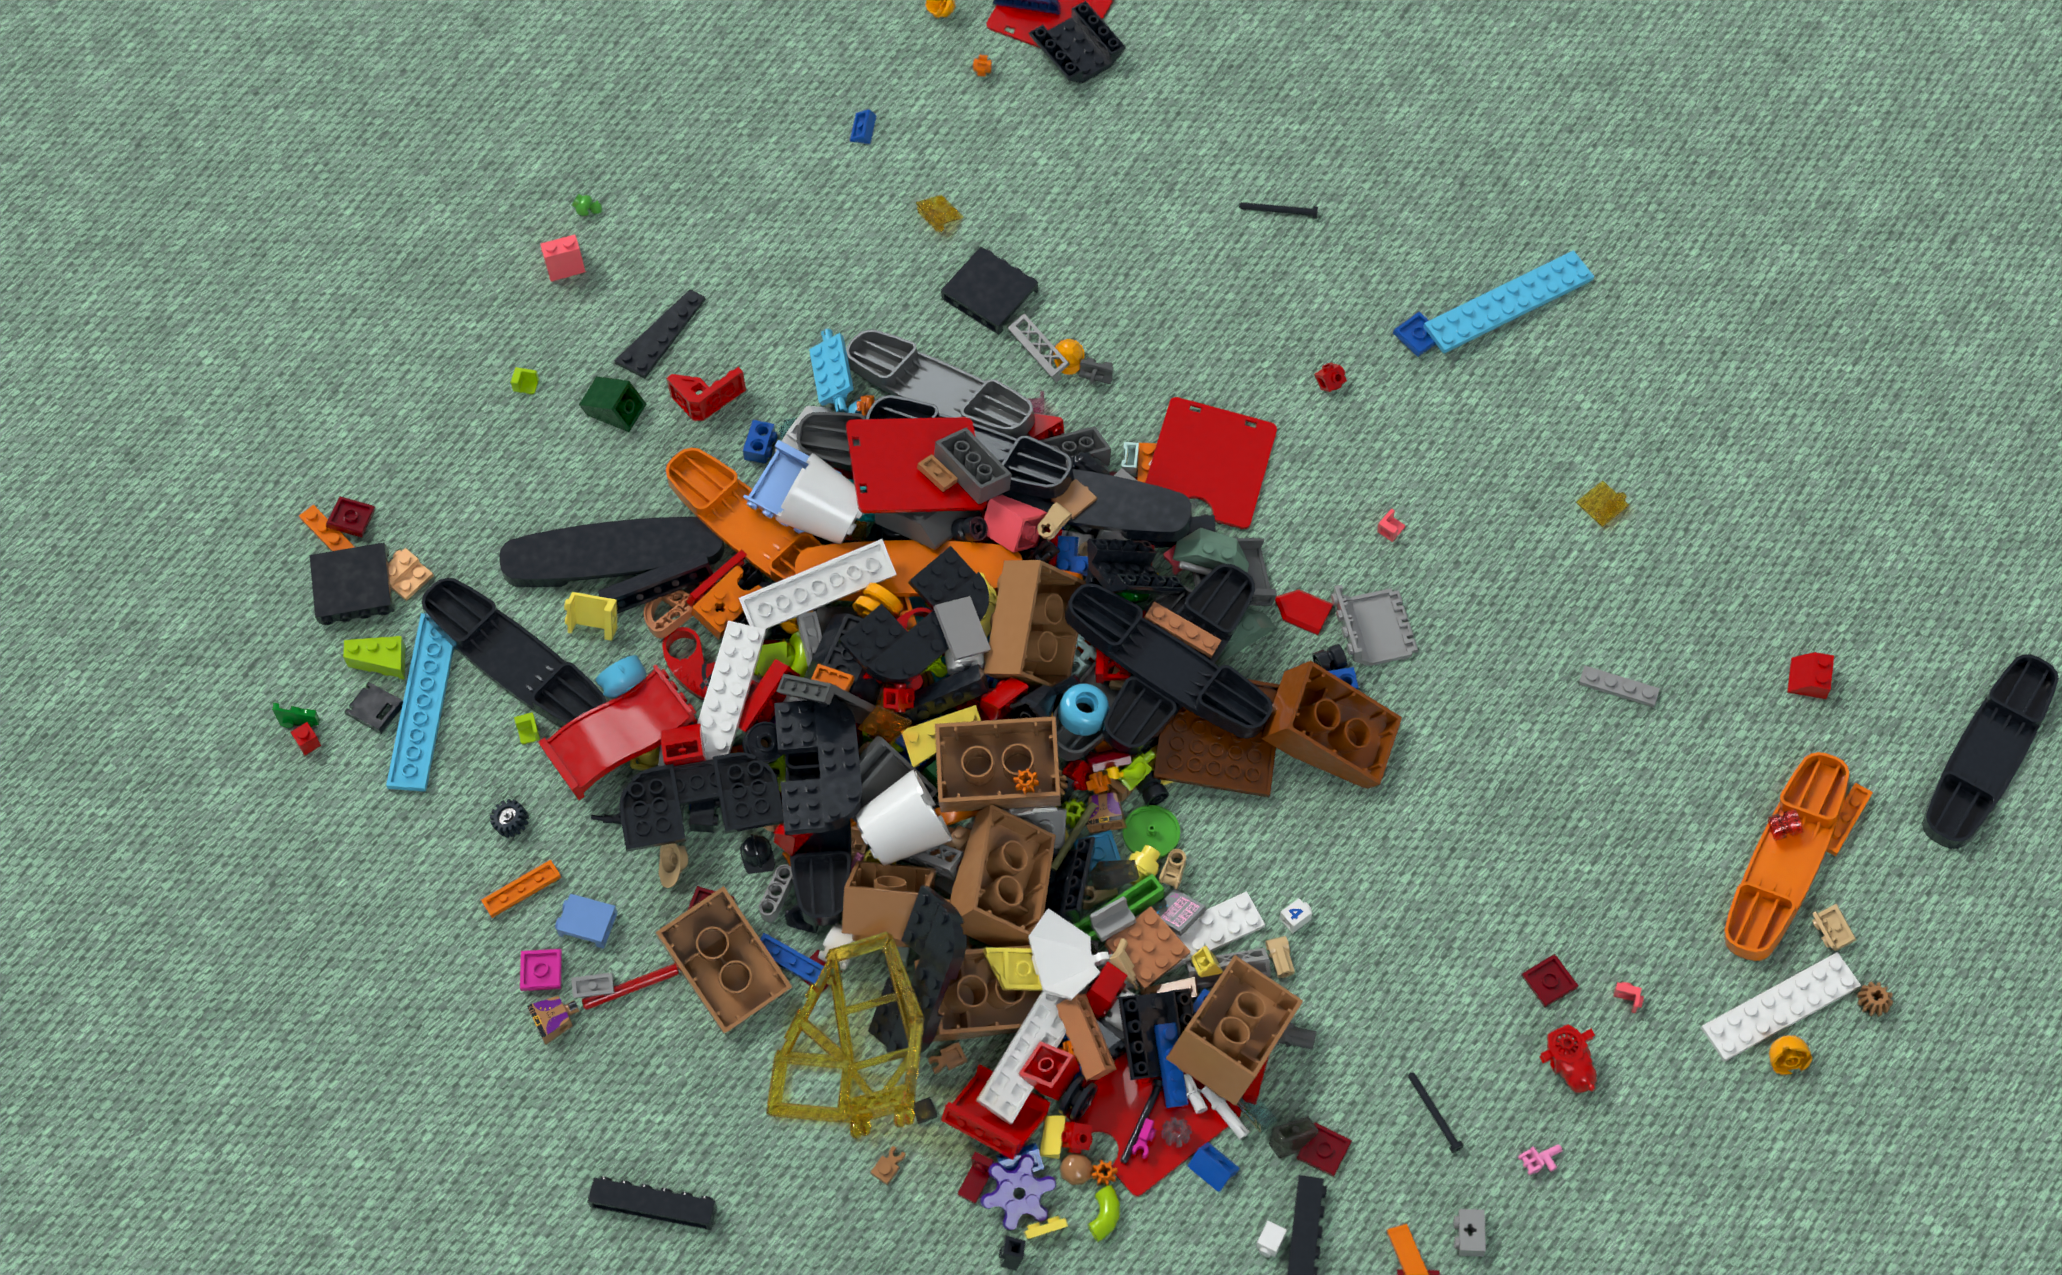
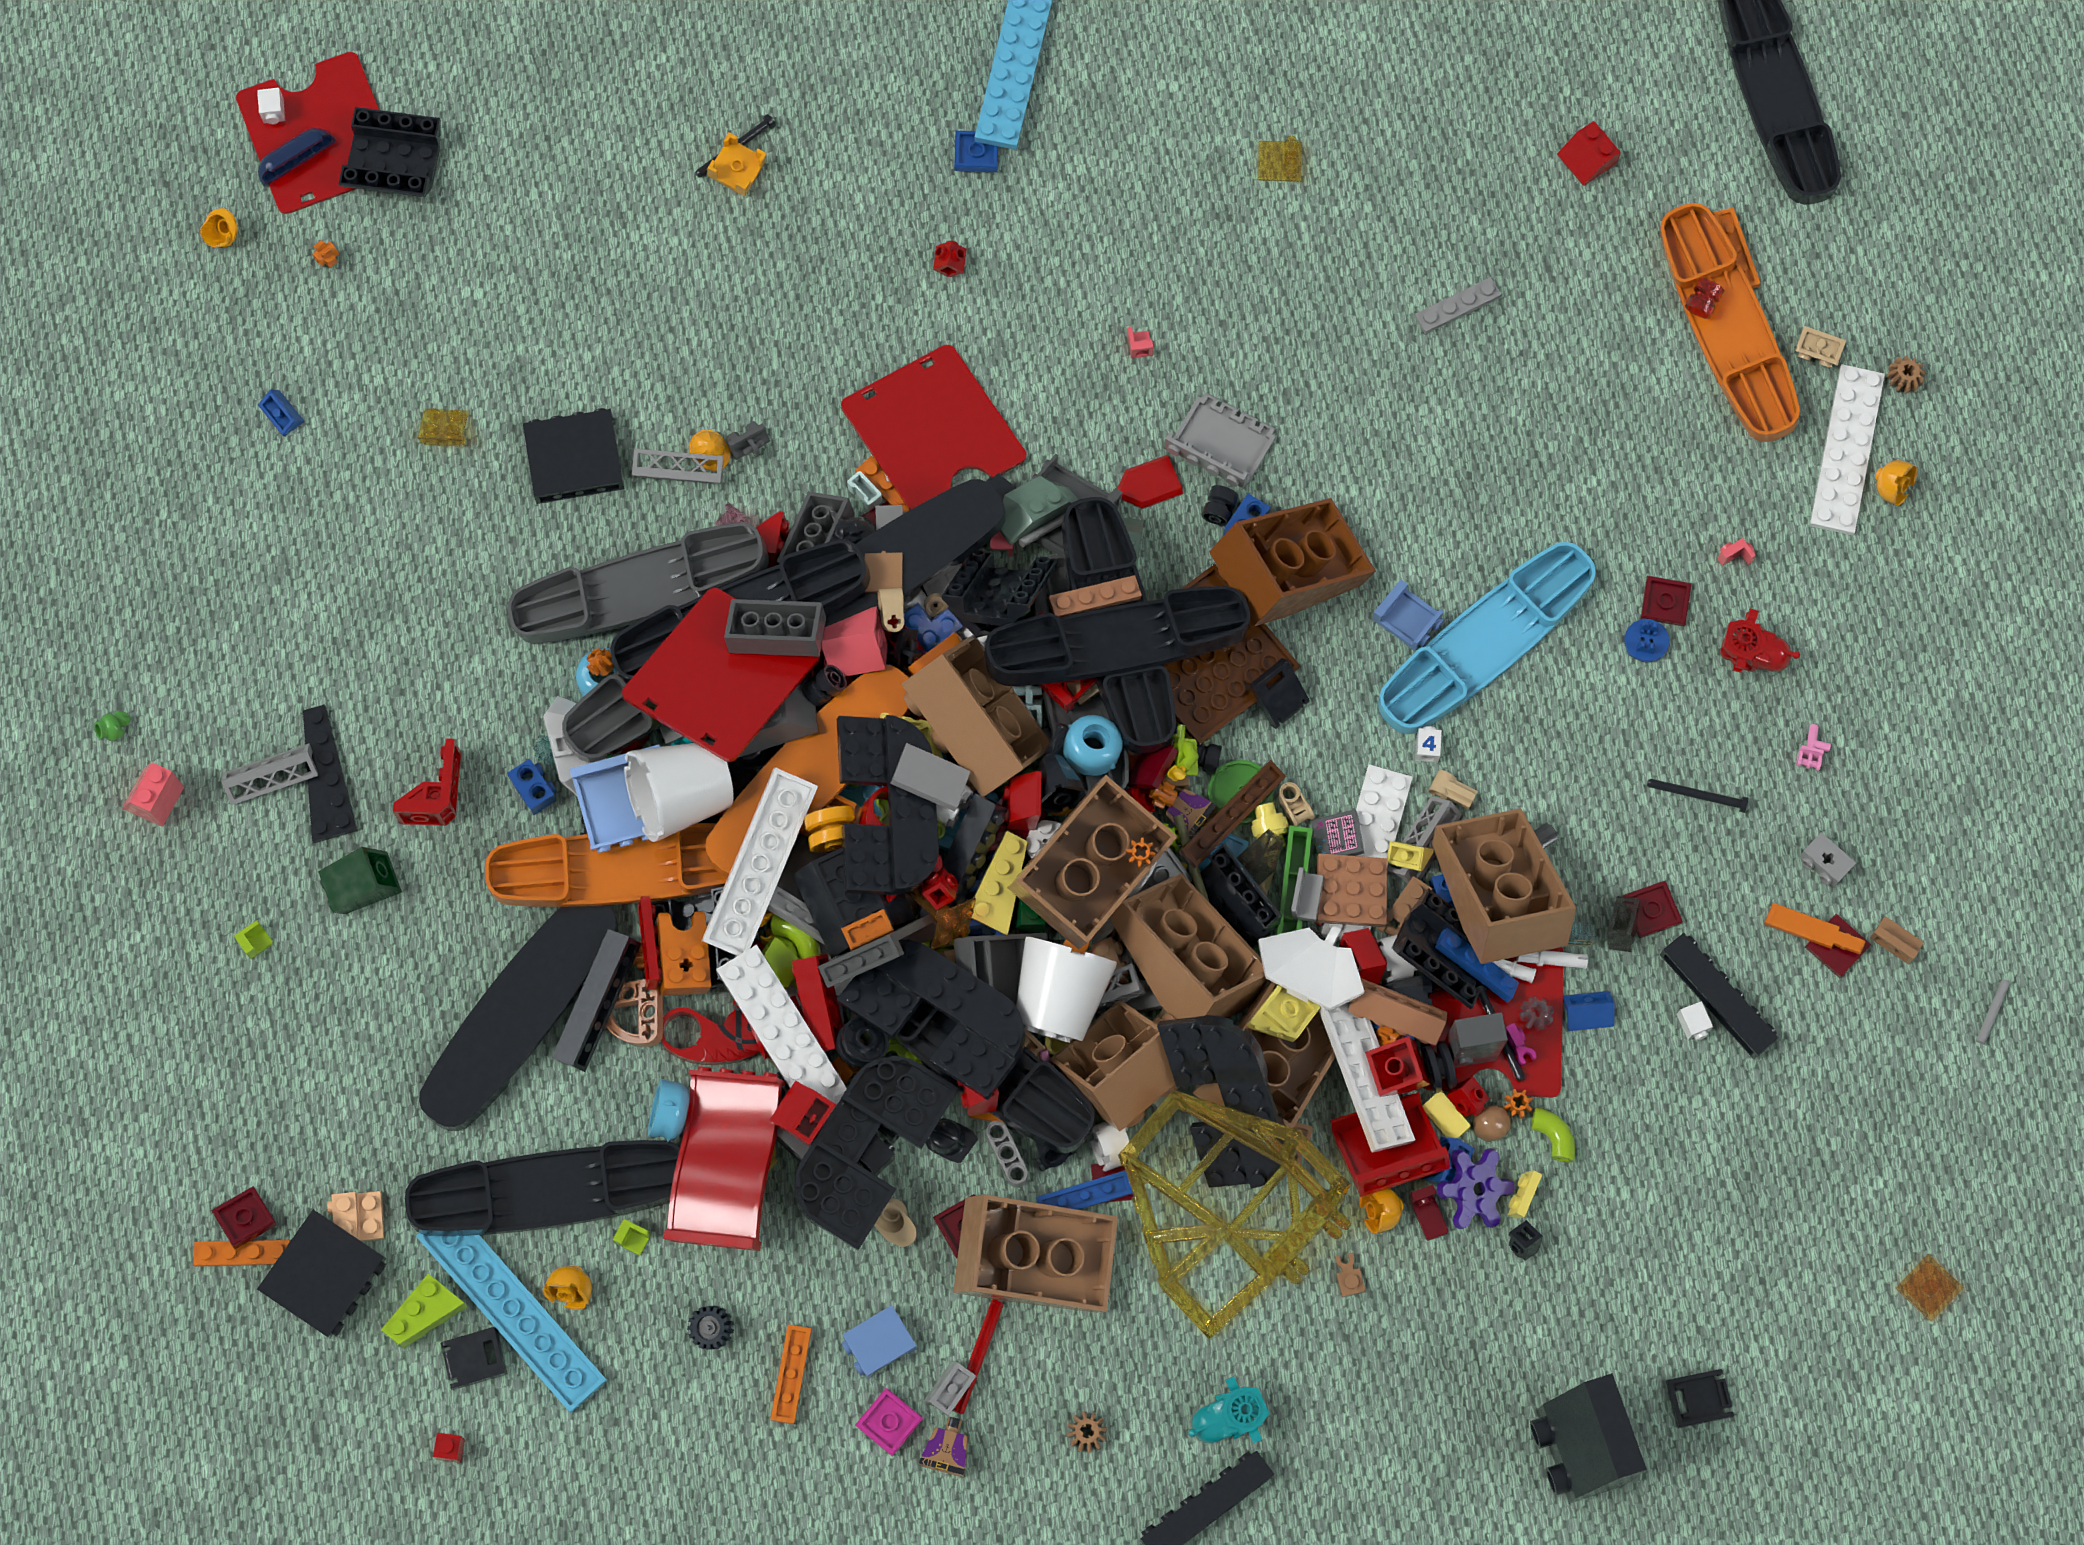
camera: 50 degrees left, 10 degrees up
(295, 716) = (411, 1447): green wing -> none
(464, 716) = (569, 1285): none -> light orange cylinder
(591, 612) = (570, 1080): light yellow panel -> none
(608, 818) = (794, 1237): black hand -> none
(629, 1092) = (1095, 1429): none -> medium nougat gear
(637, 299) = (266, 766): none -> light grey fence
(724, 1164) = (1230, 1415): none -> teal helmet
(831, 370) = (524, 661): medium azure plate -> none
(937, 473) = (752, 663): medium nougat plate -> none
(951, 1146) = (1383, 1210): none -> light orange cylinder
(1112, 1100) = (1476, 1039): none -> dark grey brick
(1122, 961) = (1351, 921): tan piece -> none
(1127, 833) = (1232, 814): none -> reddish brown plate
(1237, 801) = (1283, 697): none -> black container
(1266, 218) = (736, 165): none -> light orange panel
(1372, 831) = (1407, 616): none -> medium blue panel
(1407, 891) = (1486, 638): none -> medium azure piece
(1501, 996) = (1645, 650): none -> blue plate

